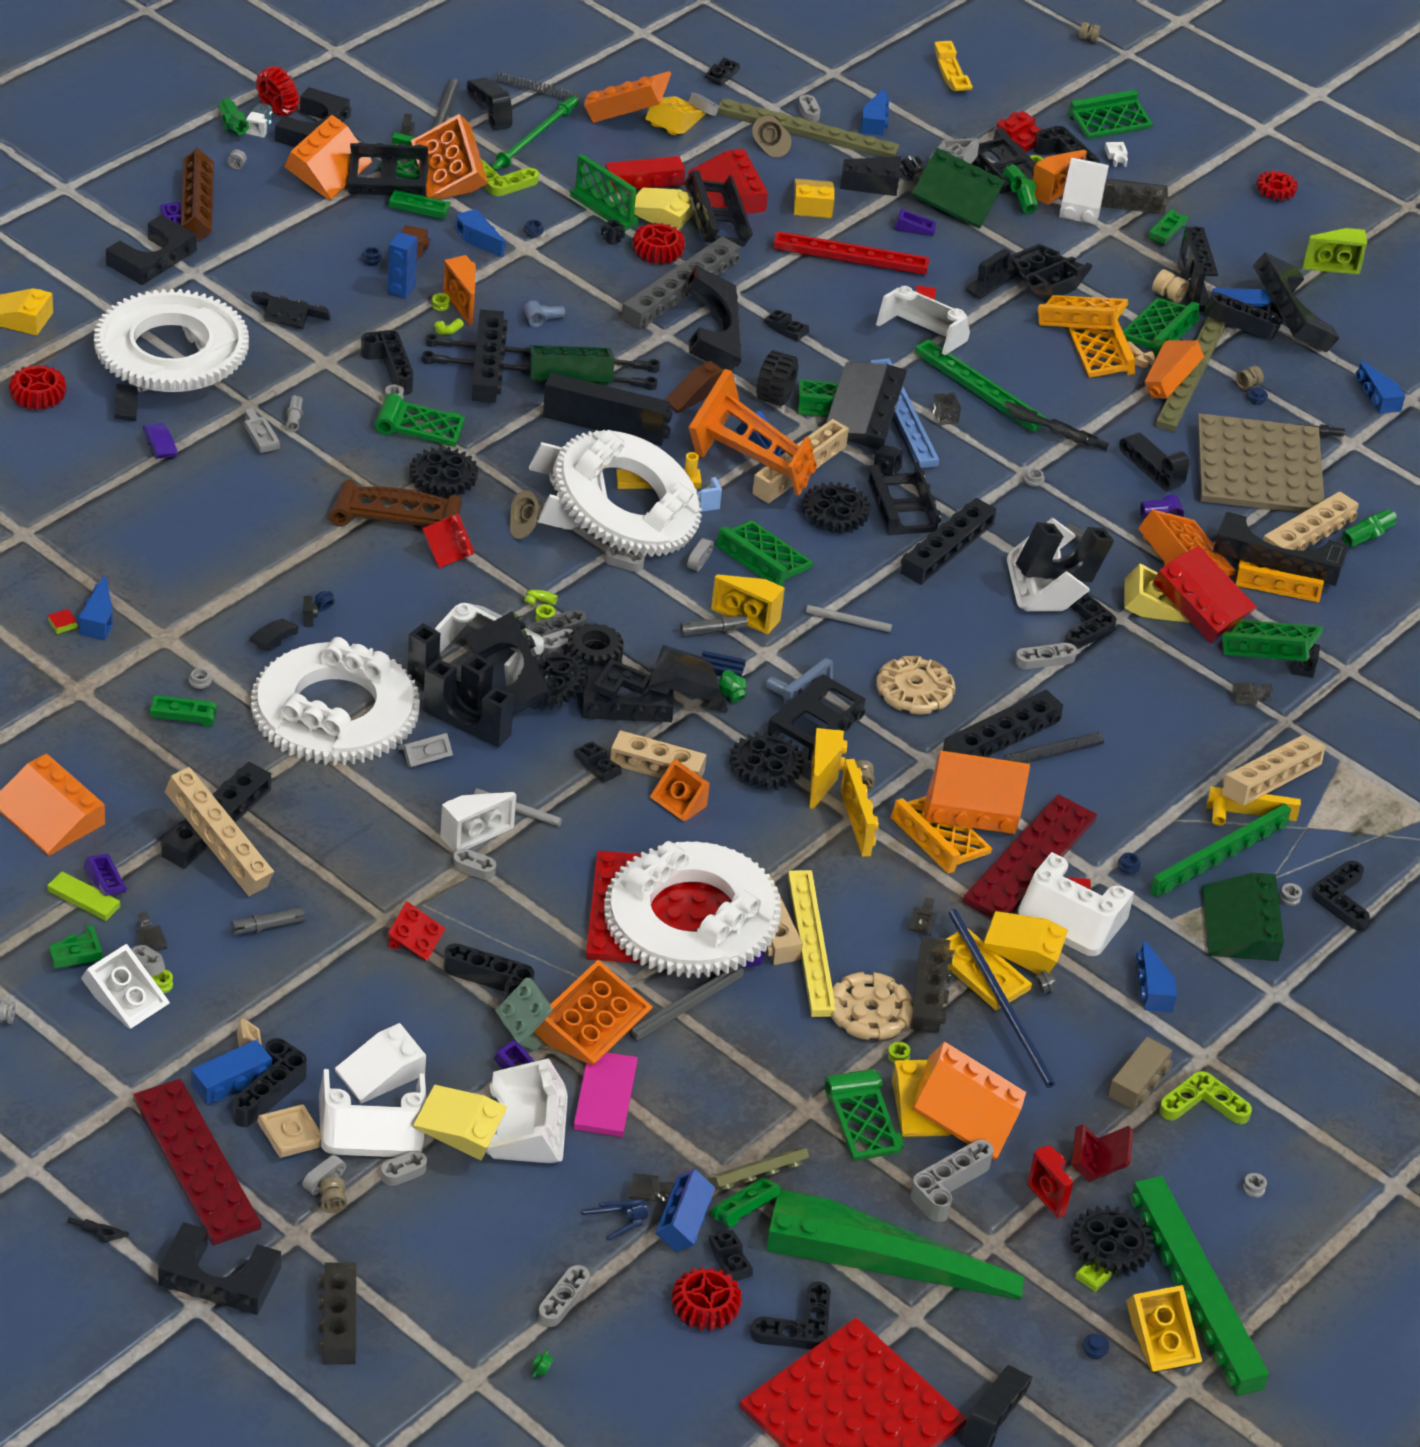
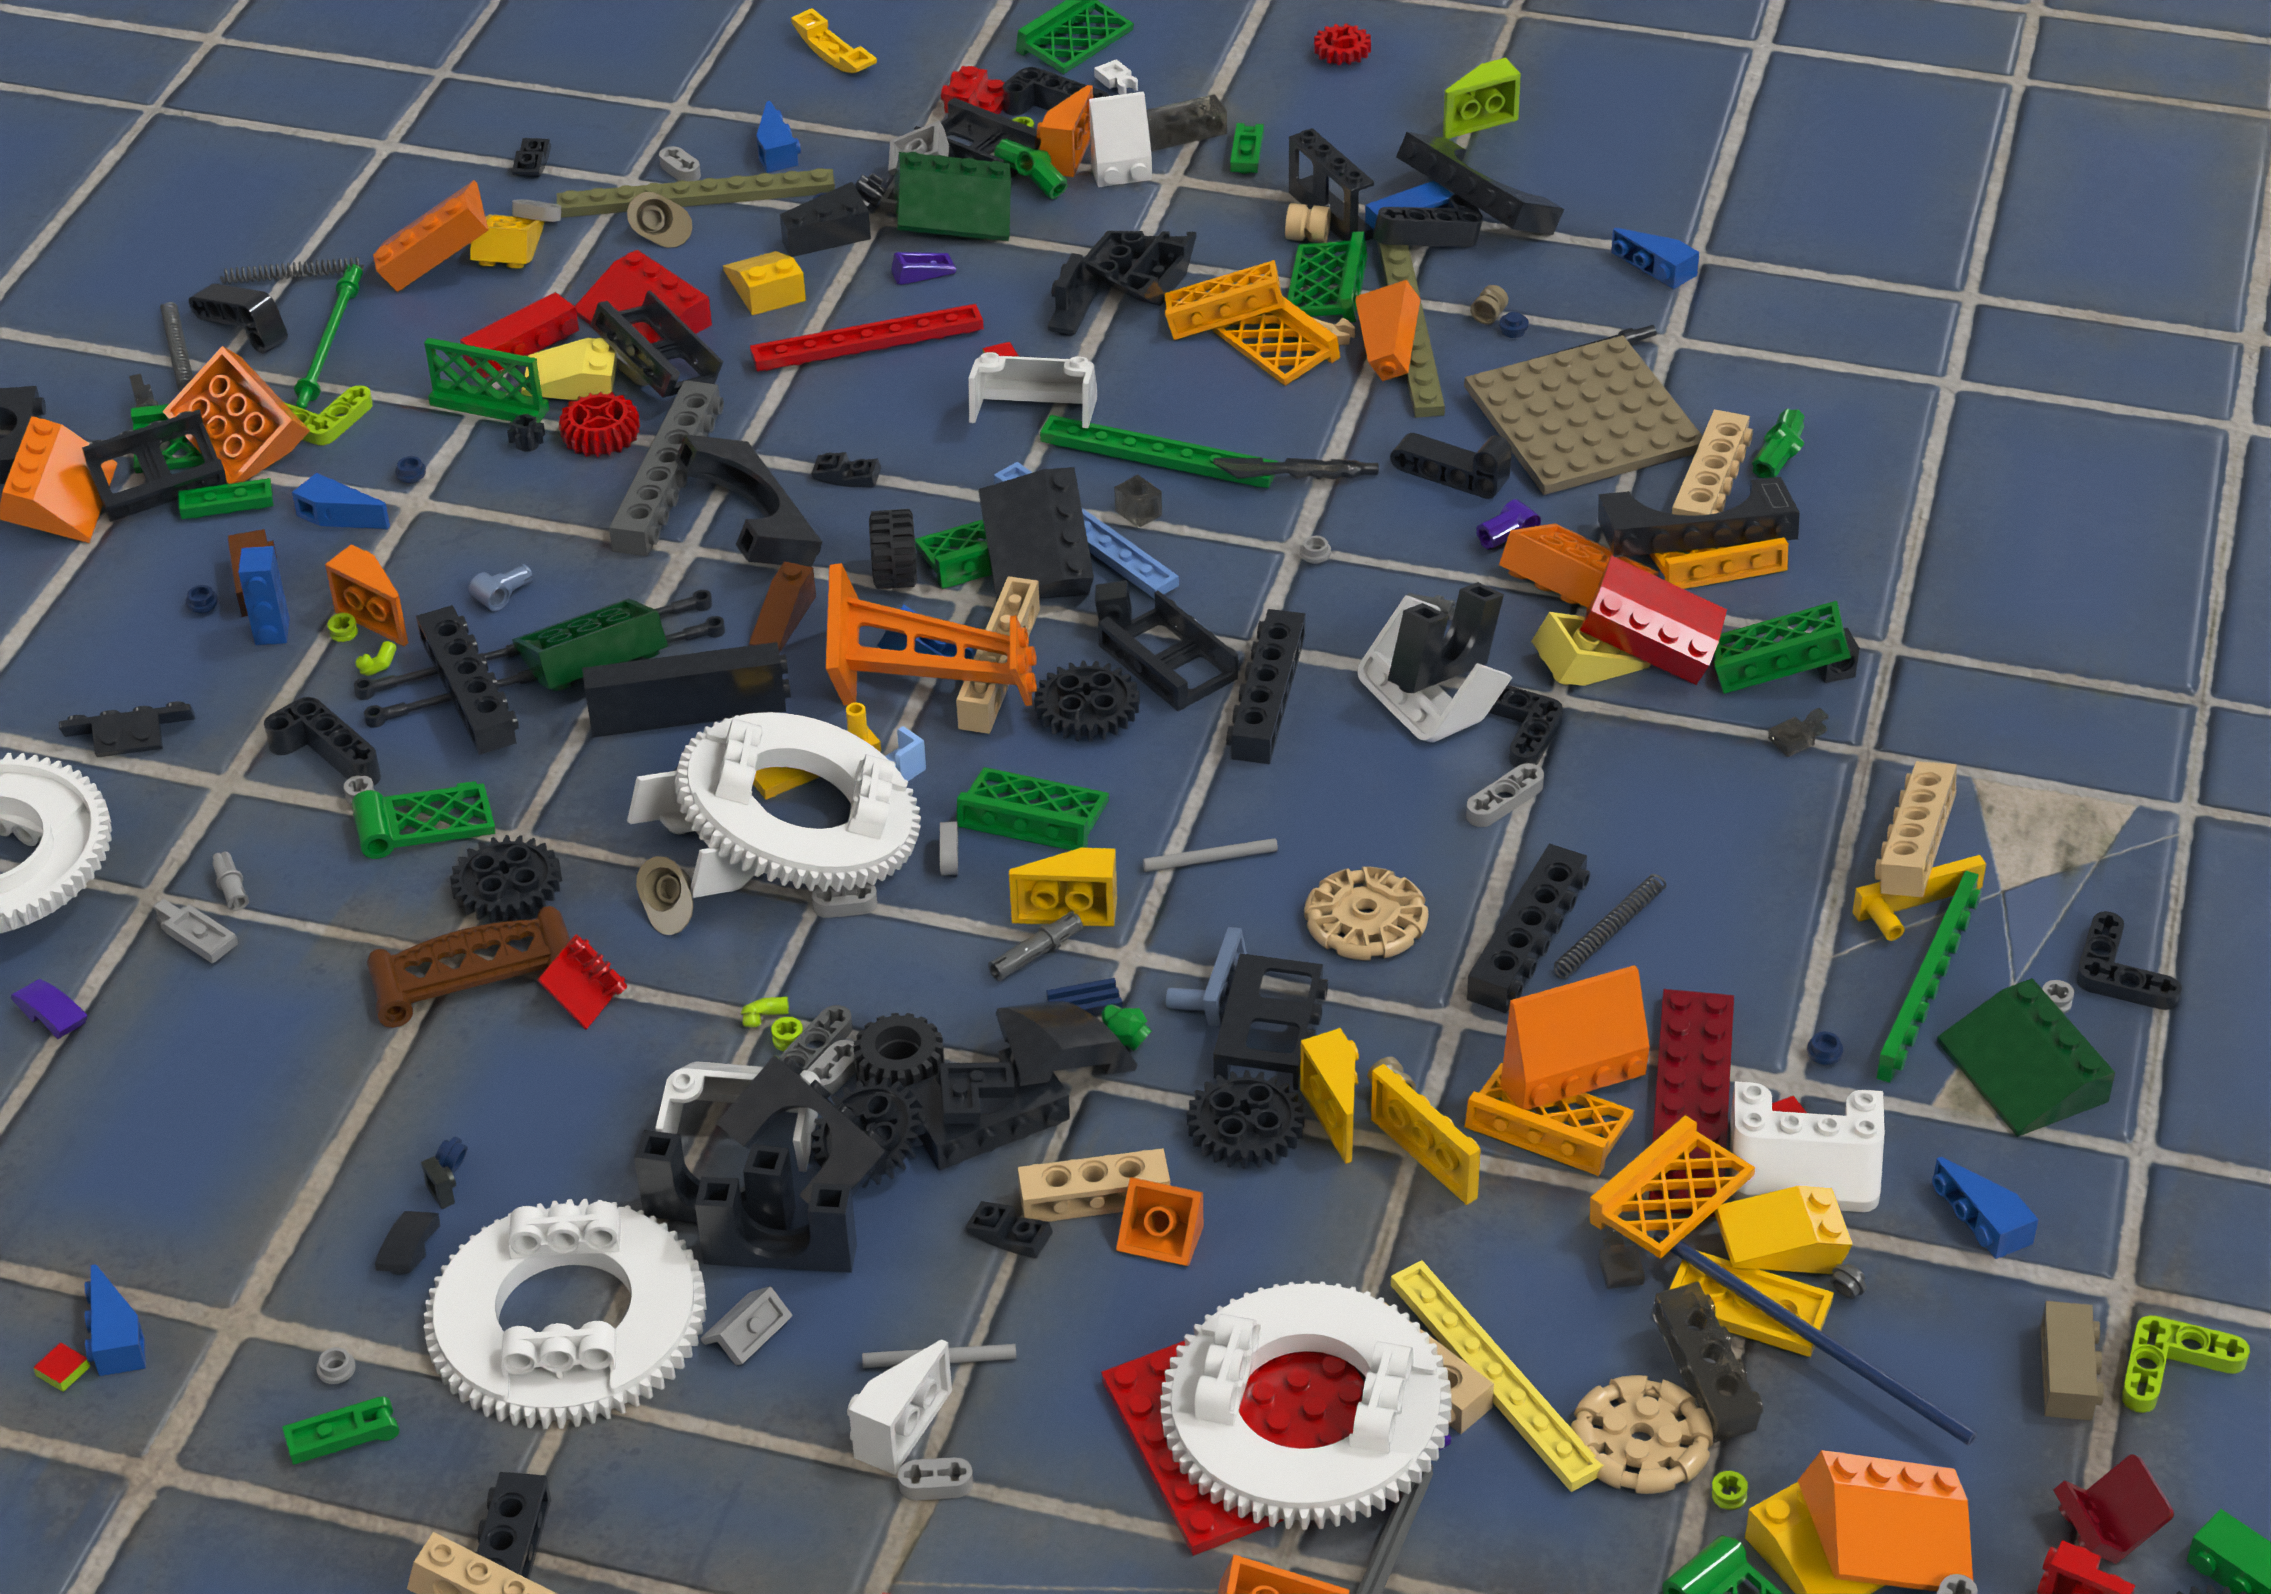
camera: 20 degrees left, 0 degrees up
(970, 878) = (1644, 1175): none -> light orange fence

